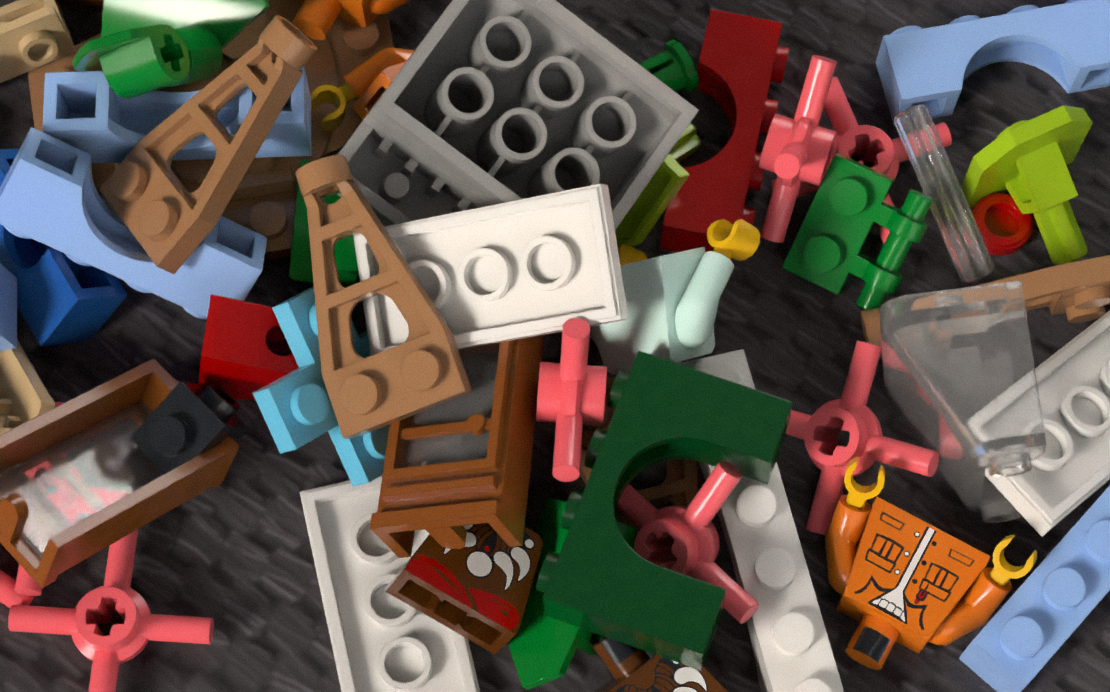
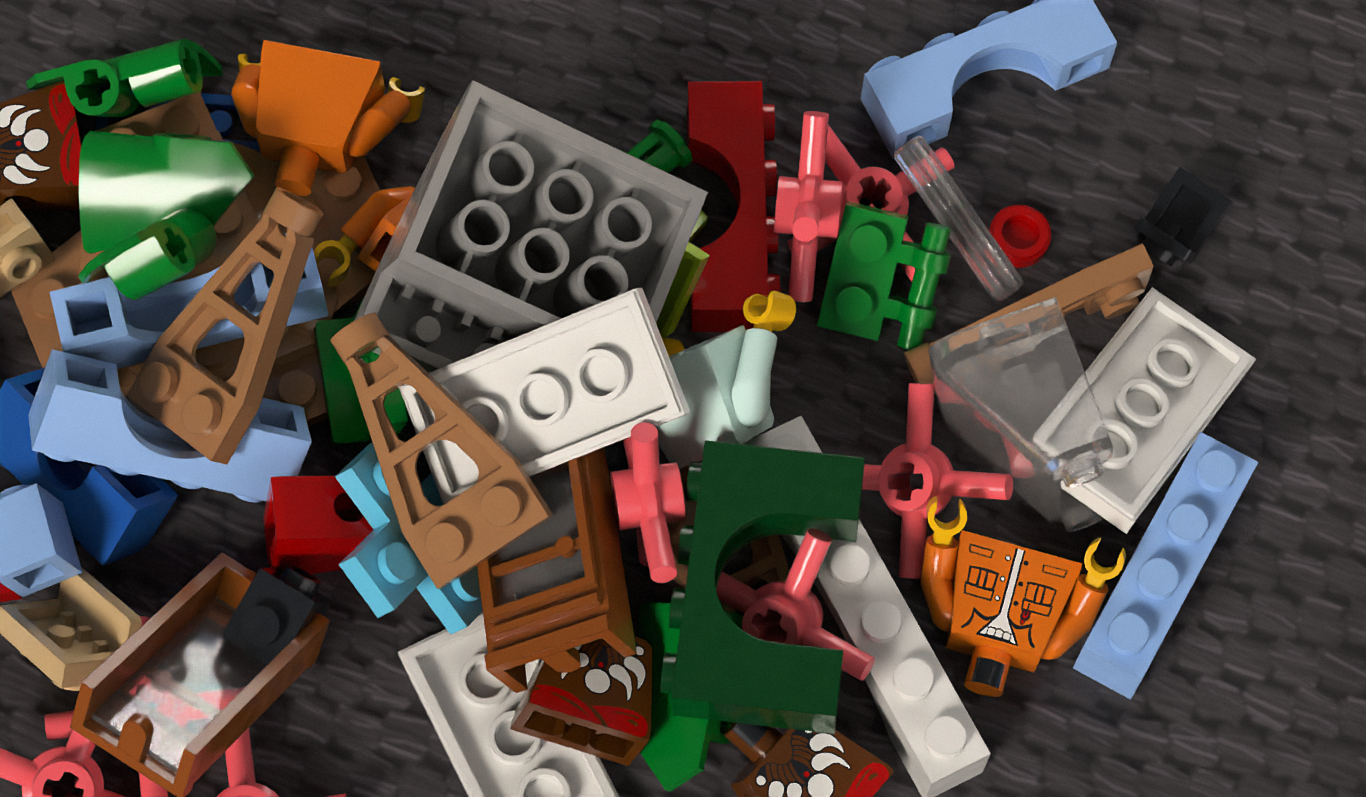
camera: 15 degrees left, 0 degrees up
(1032, 166) = (1038, 174): lime piece -> none

